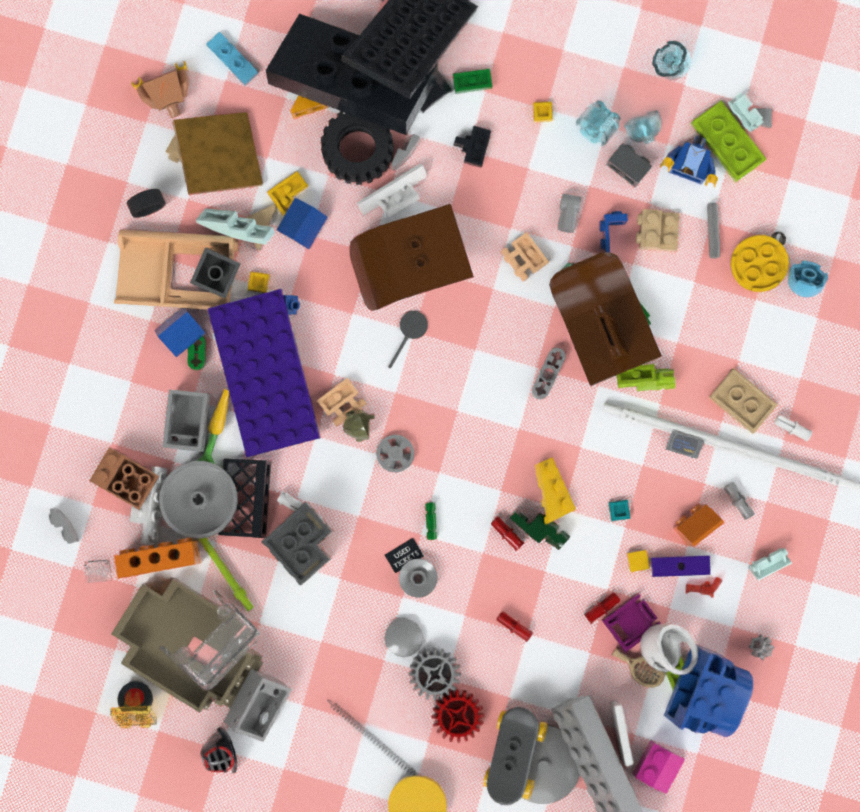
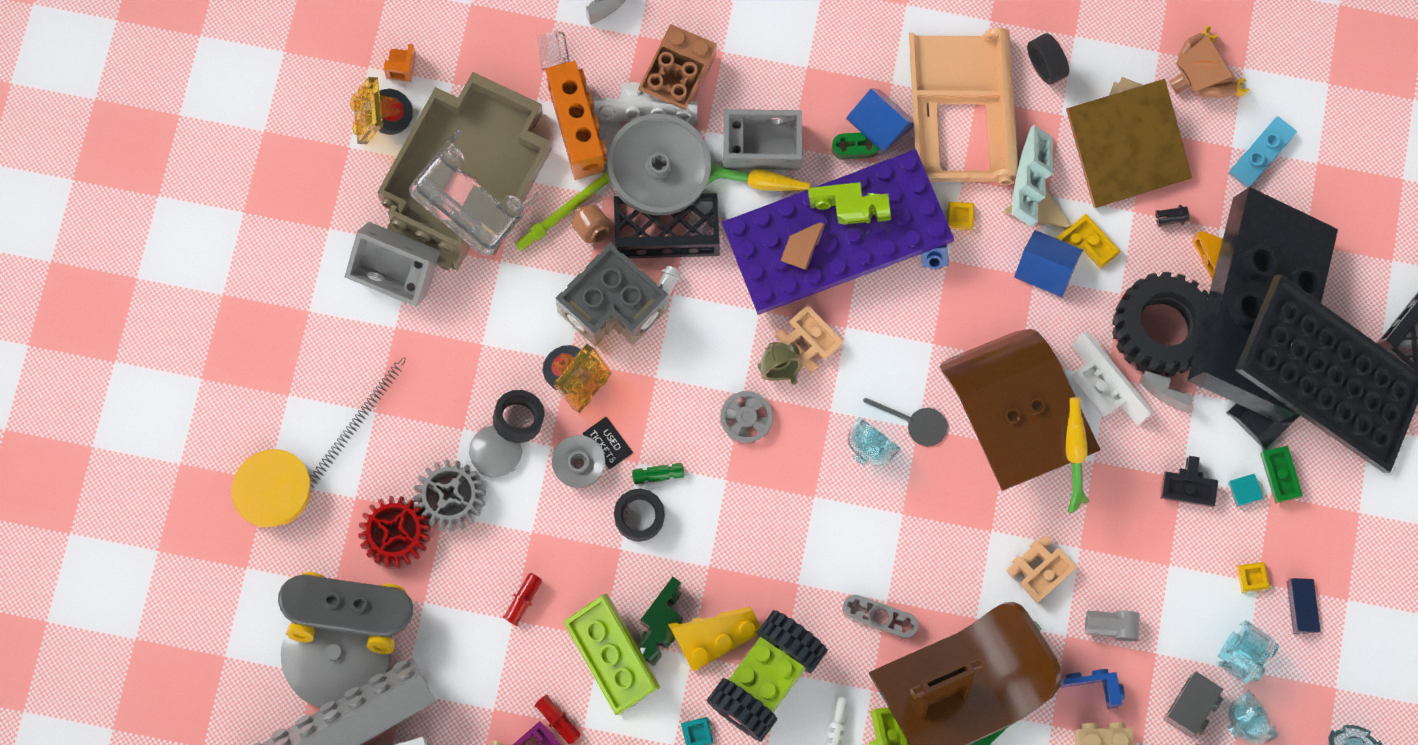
camera: 85 degrees right, 10 degrees down
(96, 688) = (400, 64): none -> orange panel
(215, 272) = (966, 154): dark grey slope -> none
(219, 753) = (325, 224): black piece -> none
(239, 553) = (591, 224): none -> nougat head
(247, 361) = (850, 203): none -> lime plate
(274, 129) = (1173, 215): none -> black pin
(275, 400) = (801, 246): none -> nougat slope
(353, 575) = (576, 374): none -> clear yellow plate
(367, 614) = (515, 434): none -> black tyre
(426, 366) = (870, 444): none -> clear light blue cylinder
(452, 220) = (1076, 453): none -> yellow piece
(475, 537) = (639, 494): none -> black tyre
(480, 107) = (1245, 490): none -> teal tile
(507, 533) = (650, 578): red axle -> none
(560, 566) = (611, 654): none -> lime tile
(566, 80) = (1303, 606): none -> dark blue slope
(588, 458) = (767, 675): none -> plate

